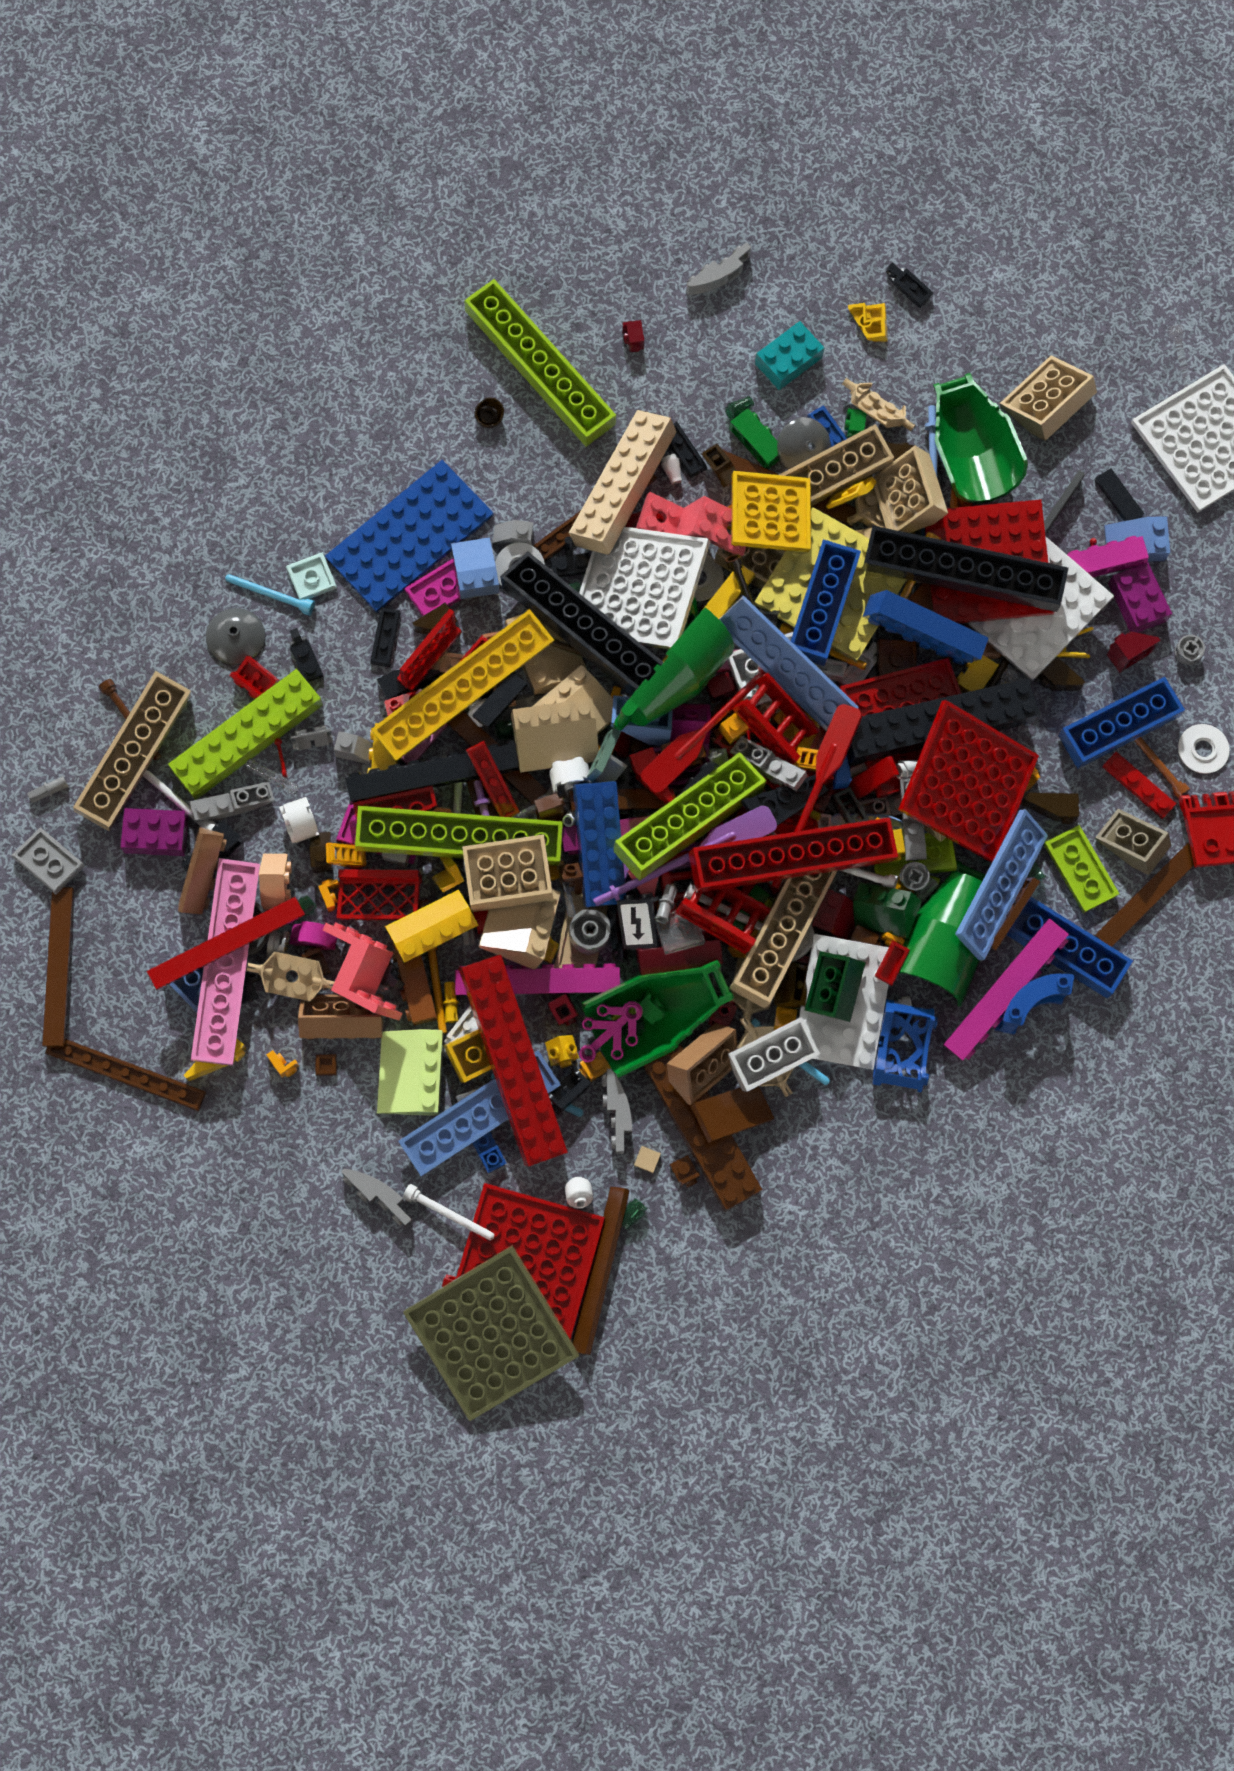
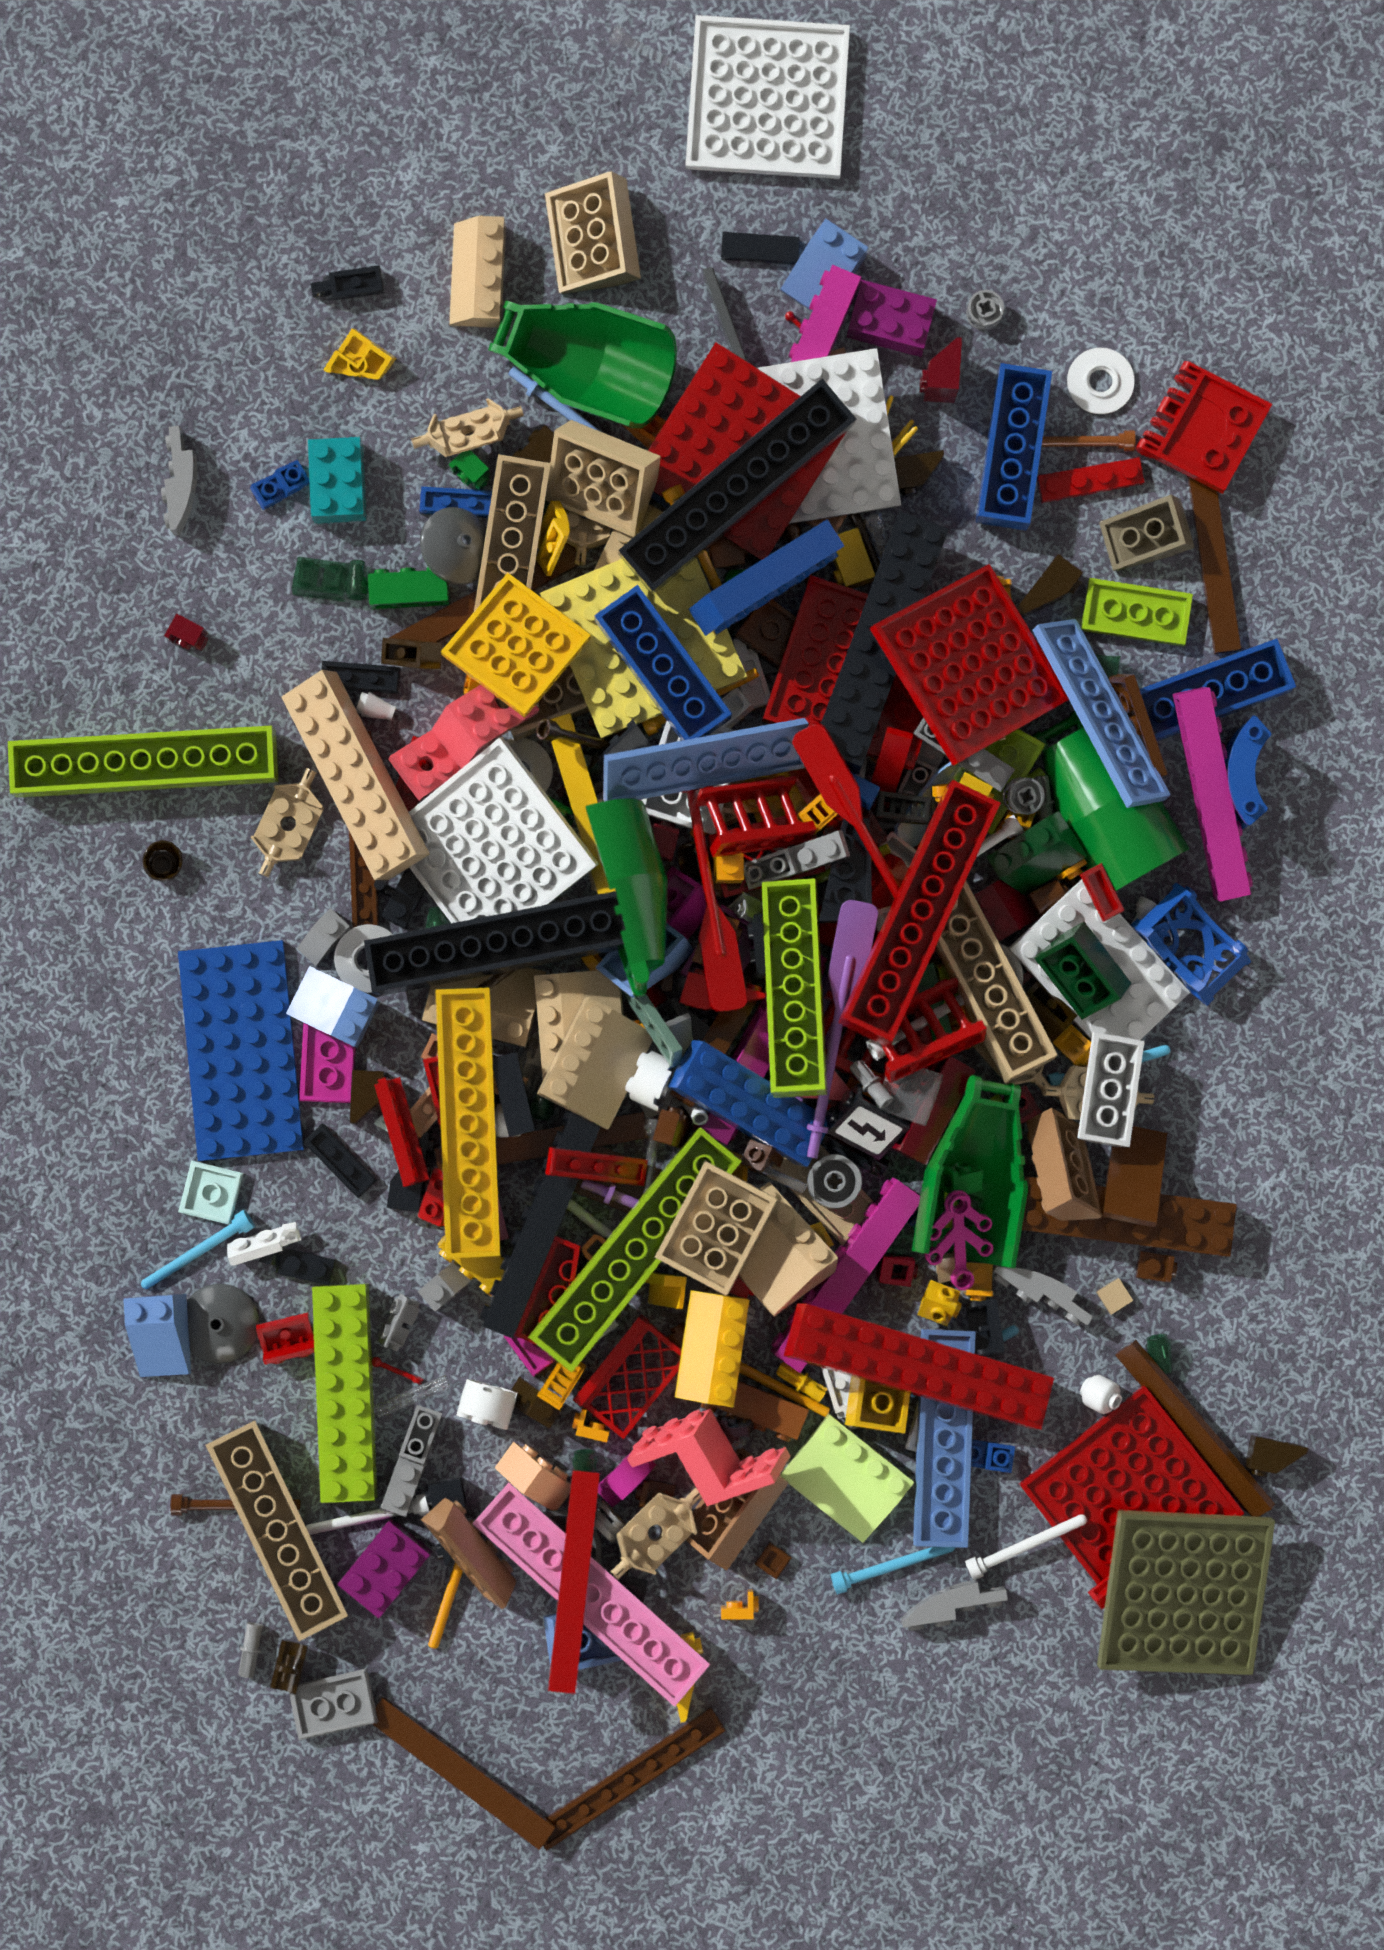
camera: 50 degrees left, 10 degrees up
(53, 817) = (289, 1666): none -> dark brown hips
(157, 886) = (445, 1607): none -> light orange piece
(204, 603) = (159, 1334): none -> medium blue slope
(302, 625) = (262, 1244): none -> white hinge
(343, 1116) = (843, 1581): none -> medium azure piece
(578, 459) = (294, 802): none -> tan plate
(587, 1037) = (946, 1268): none -> tan tile
(620, 1331) = (1271, 1455): none -> dark brown slope
(720, 379) = (307, 576): none -> clear green piece
(760, 328) = (280, 485): none -> blue slope
(905, 768) = (906, 715): white cone -> none
(975, 349) = (478, 272): none -> tan slope

